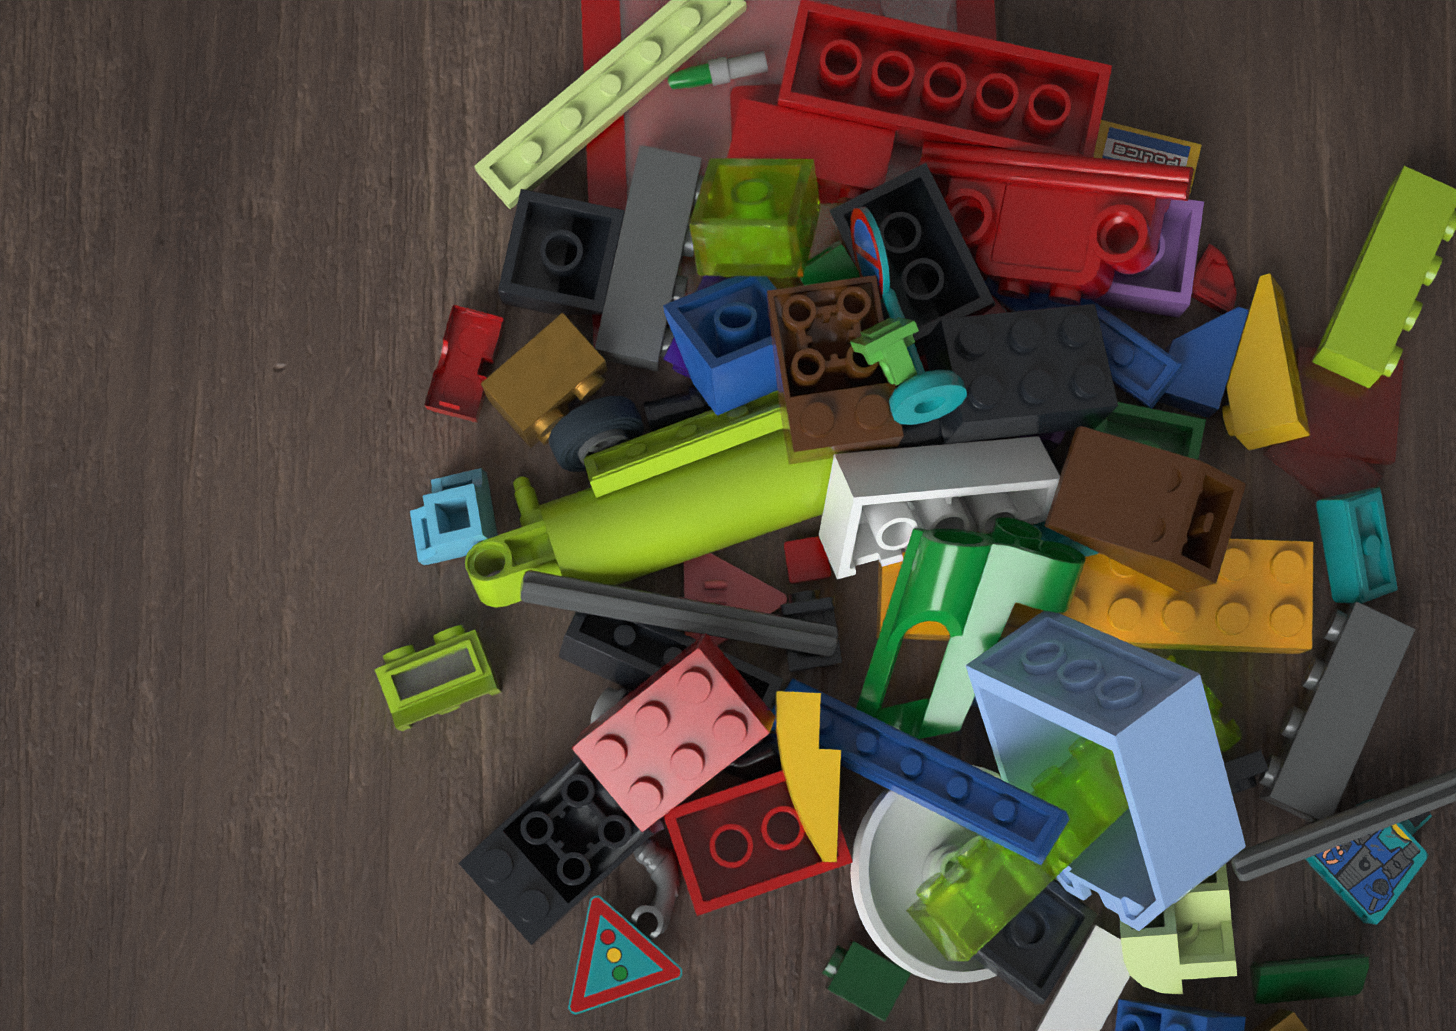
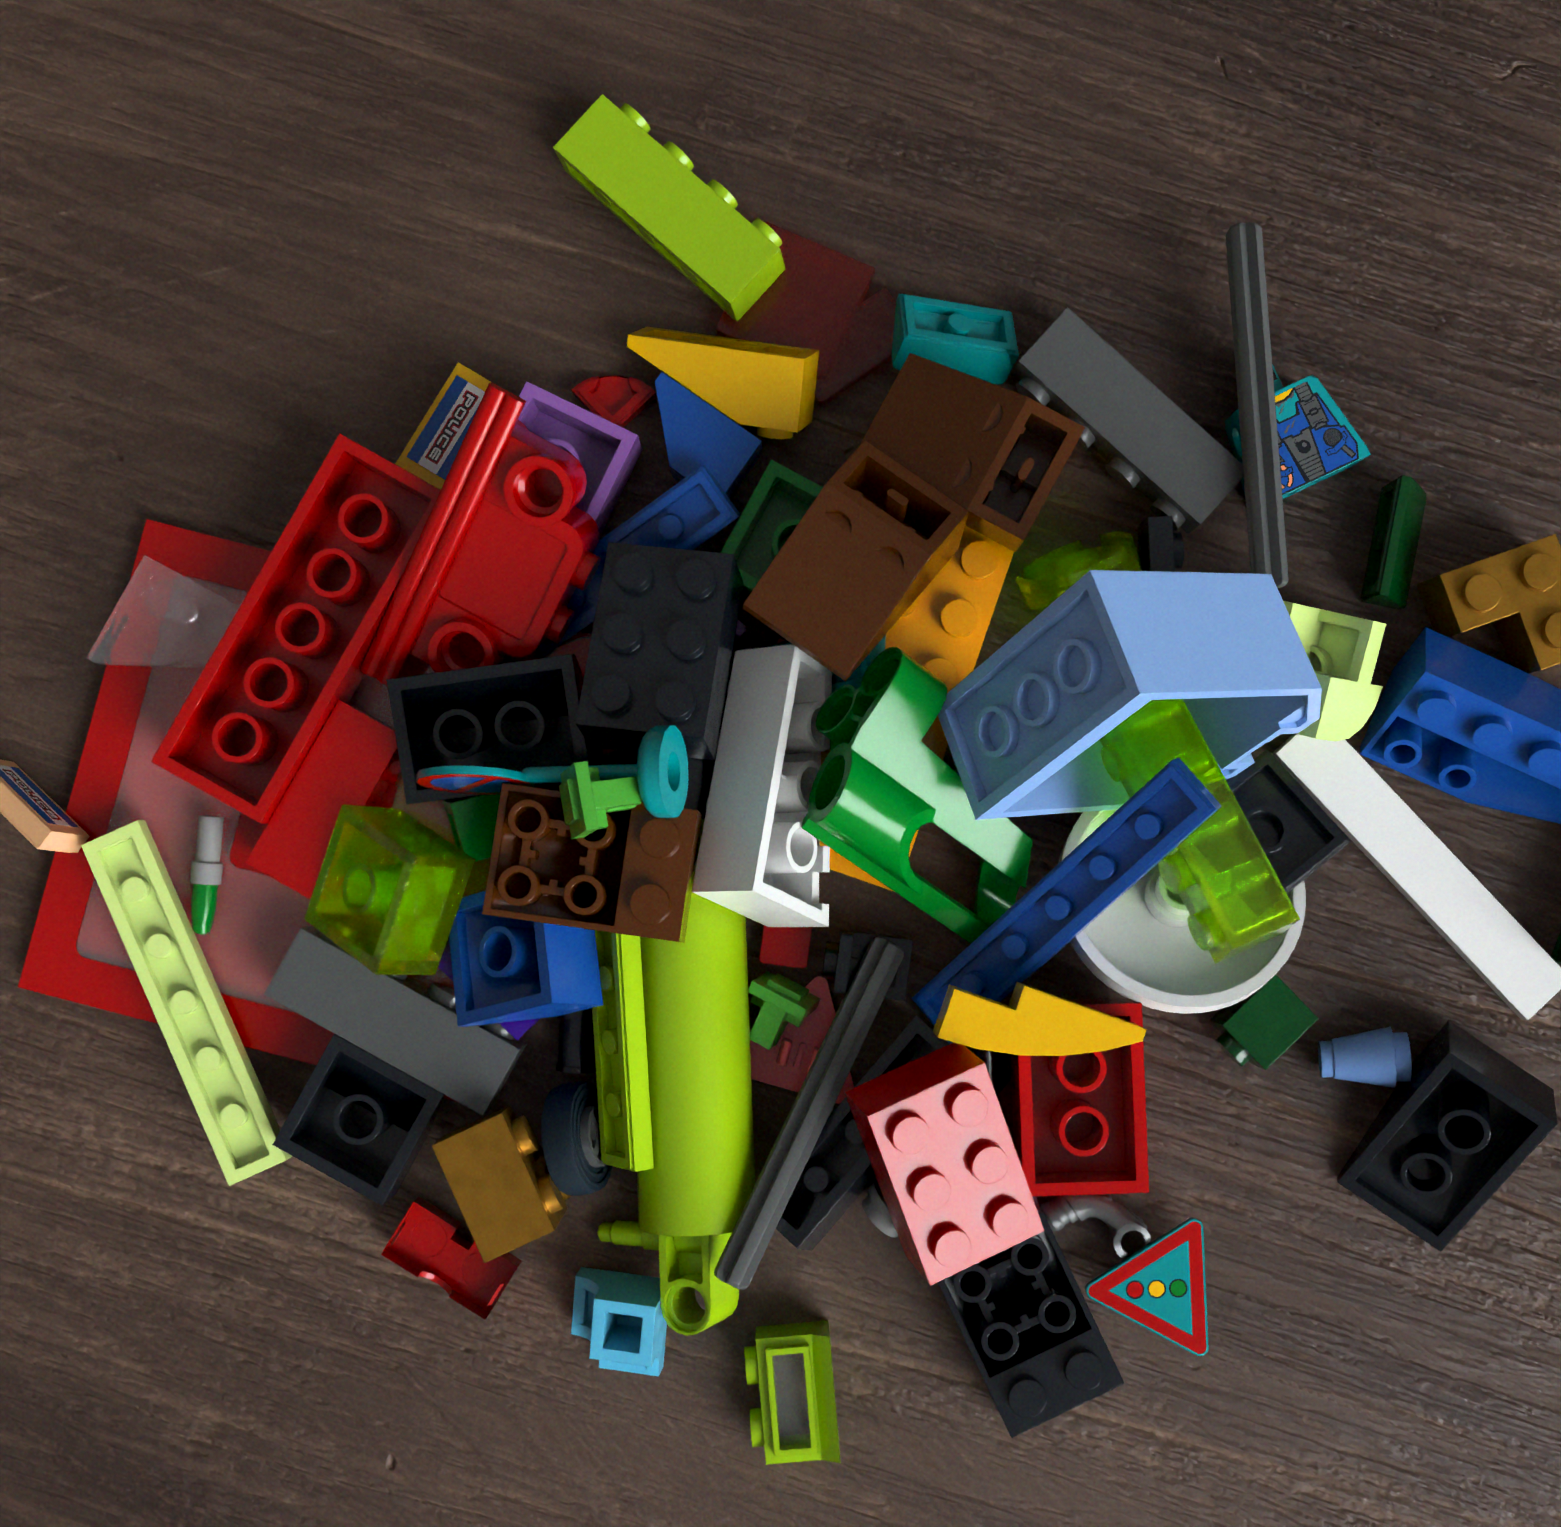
camera: 70 degrees left, 5 degrees up
(753, 568) = (780, 1003): none -> bright green brick
(1271, 579) = (975, 445): none -> reddish brown slope

